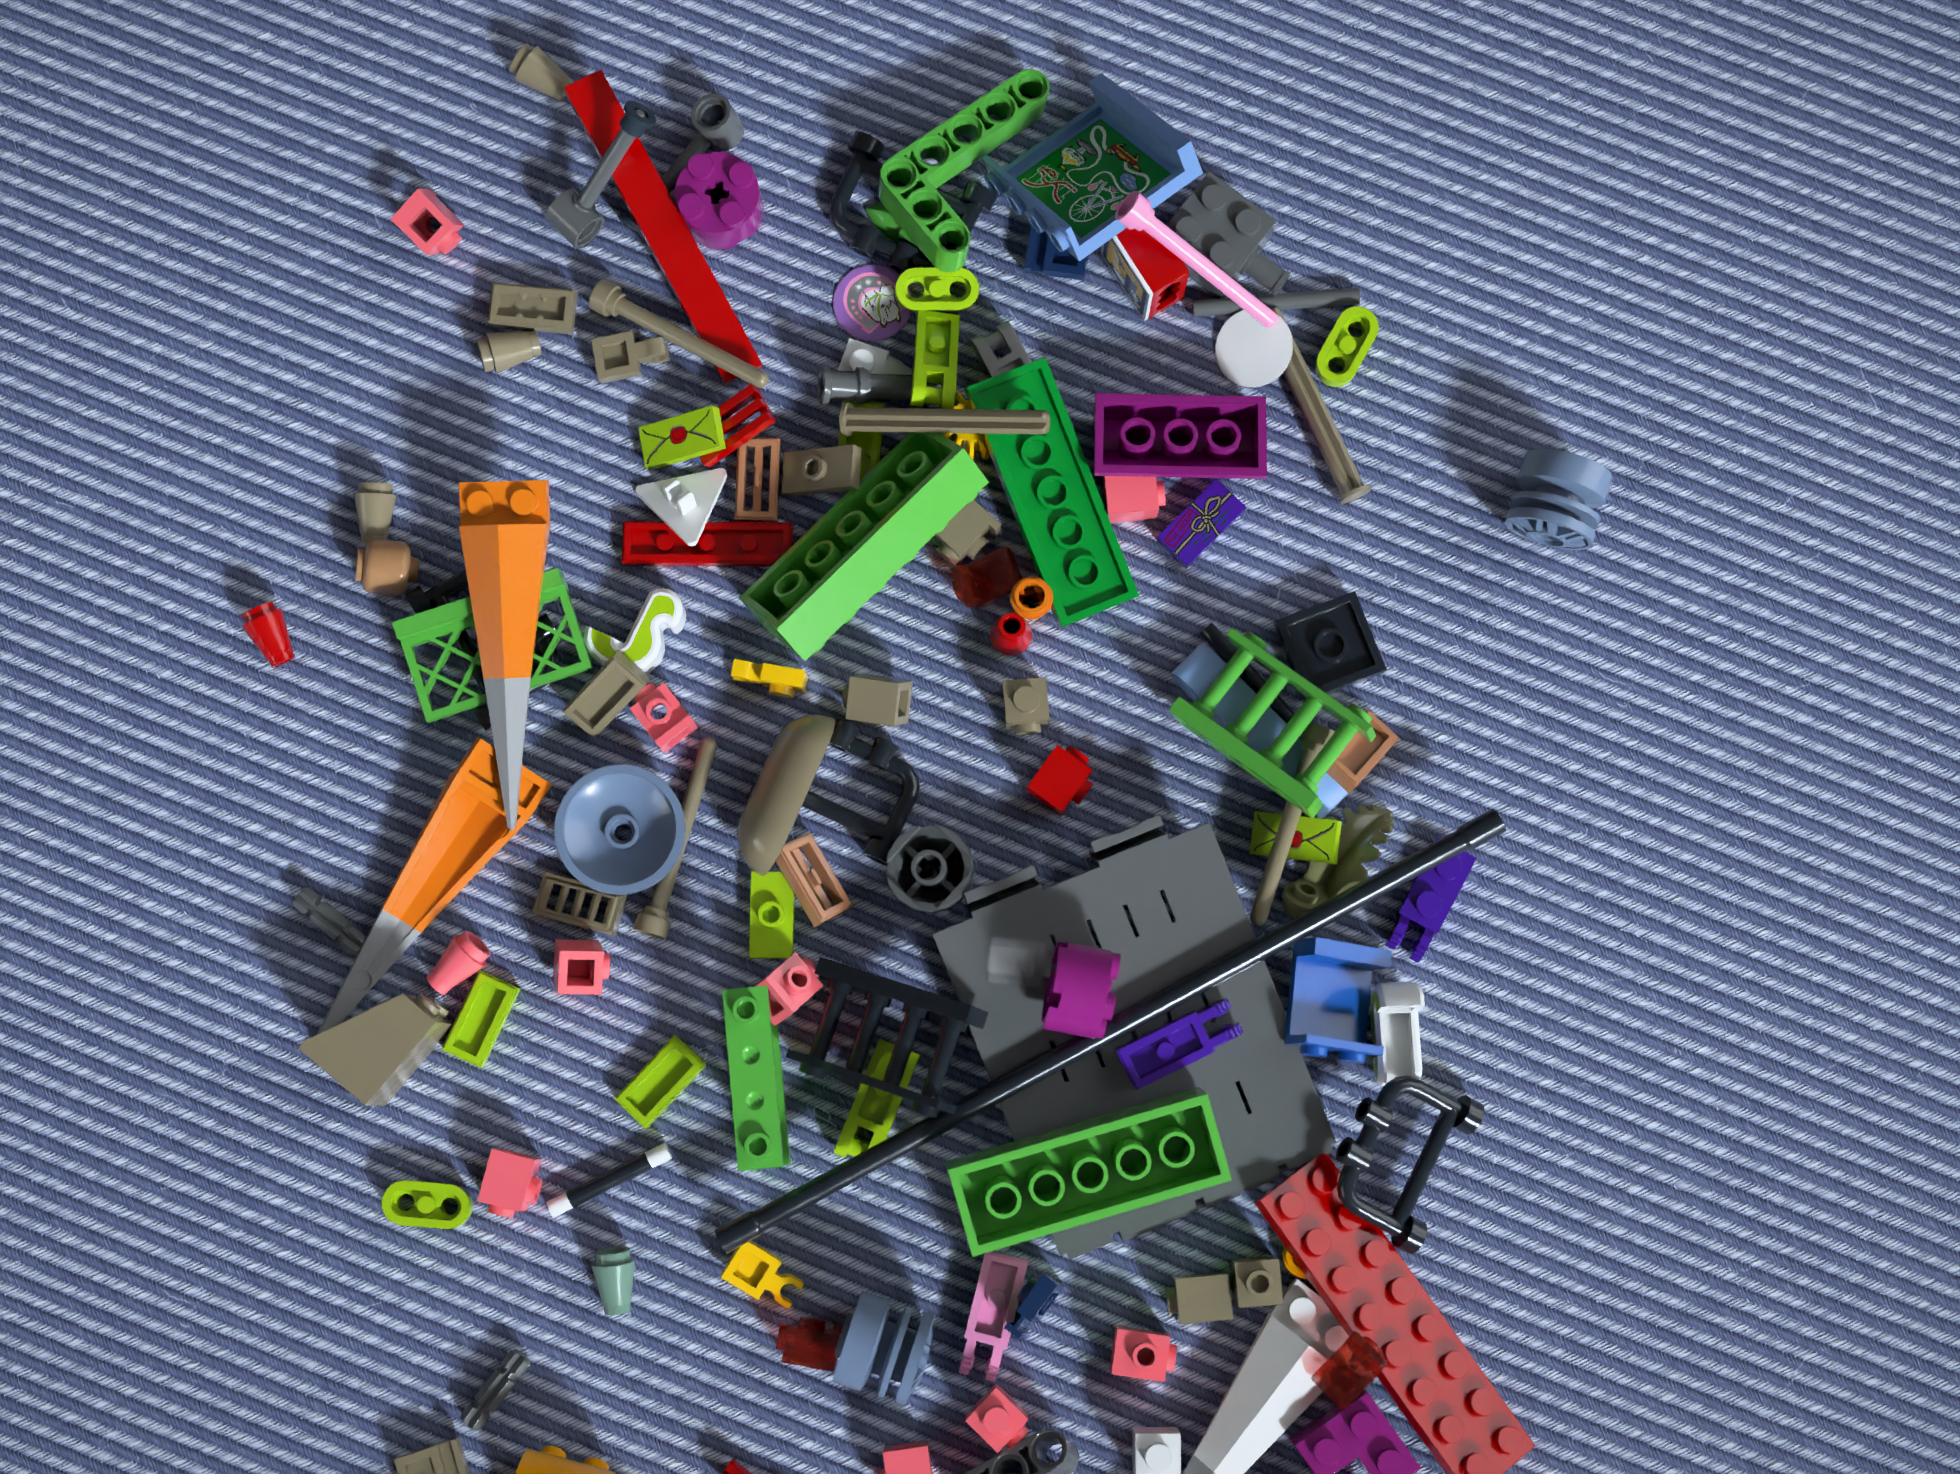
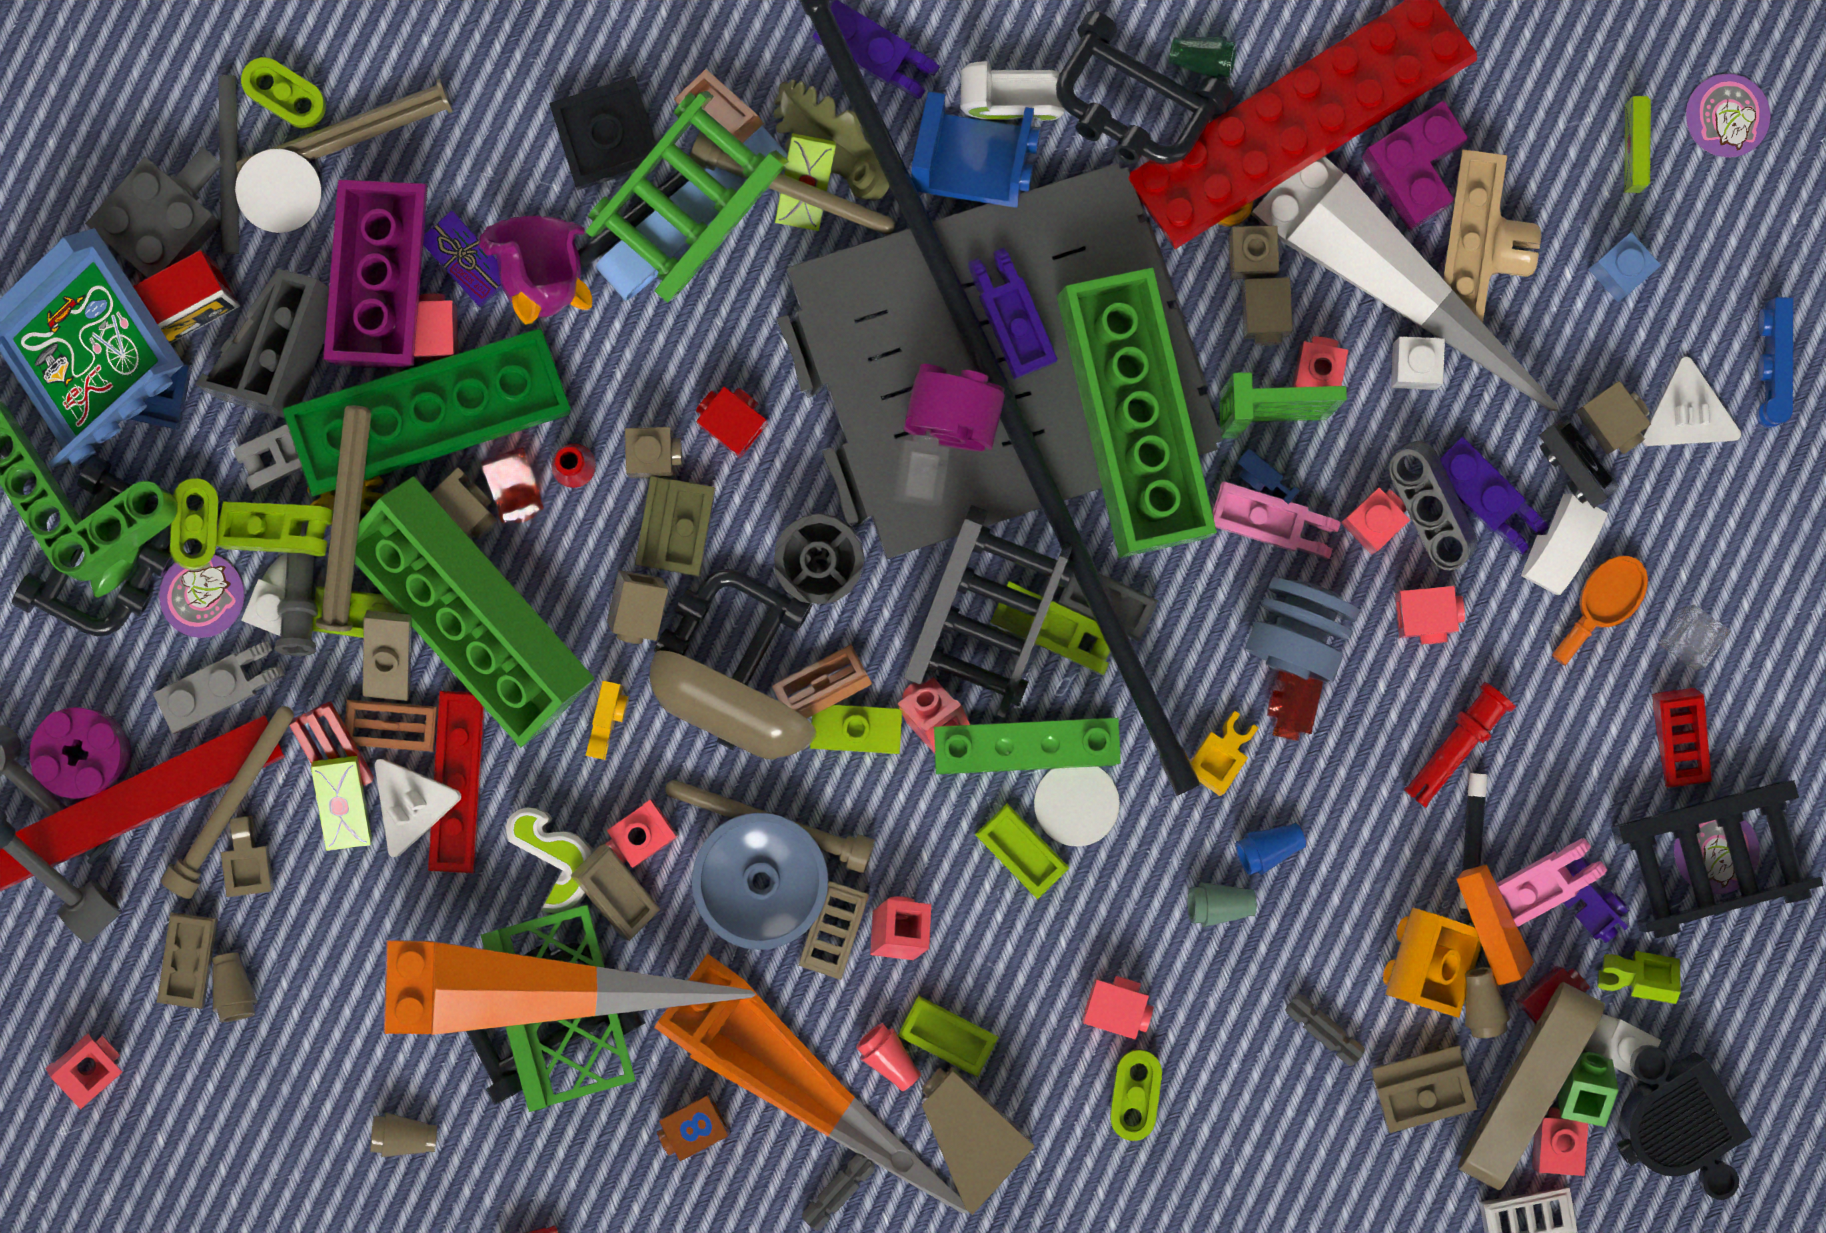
camera: 85 degrees left, 5 degrees up
(386, 567) = (464, 1124): medium nougat head -> none
(386, 780) = (692, 1128): none -> dark orange brick
(609, 1180) = (1119, 907): black bar -> none
(671, 1325) = (1269, 847): none -> blue cone
(704, 1133) = (1076, 805): none -> white sticker
(785, 317) = (214, 688): none -> light grey hinge
(902, 1174) = (1131, 605): none -> dark grey plate
(957, 732) = (675, 526): none -> olive plate
(1031, 589) = (531, 431): orange cone -> none
(1099, 1274) = (1242, 404): none -> bright green fence
(1103, 351) = (275, 348): none -> dark grey wedge
(1137, 213) = (139, 298): bright pink piece -> none
(1198, 588) = (538, 264): none -> magenta hair
(1350, 1370) = (1345, 163): clear red bracket -> none
(1448, 1223) = (1204, 55): none -> clear green cone

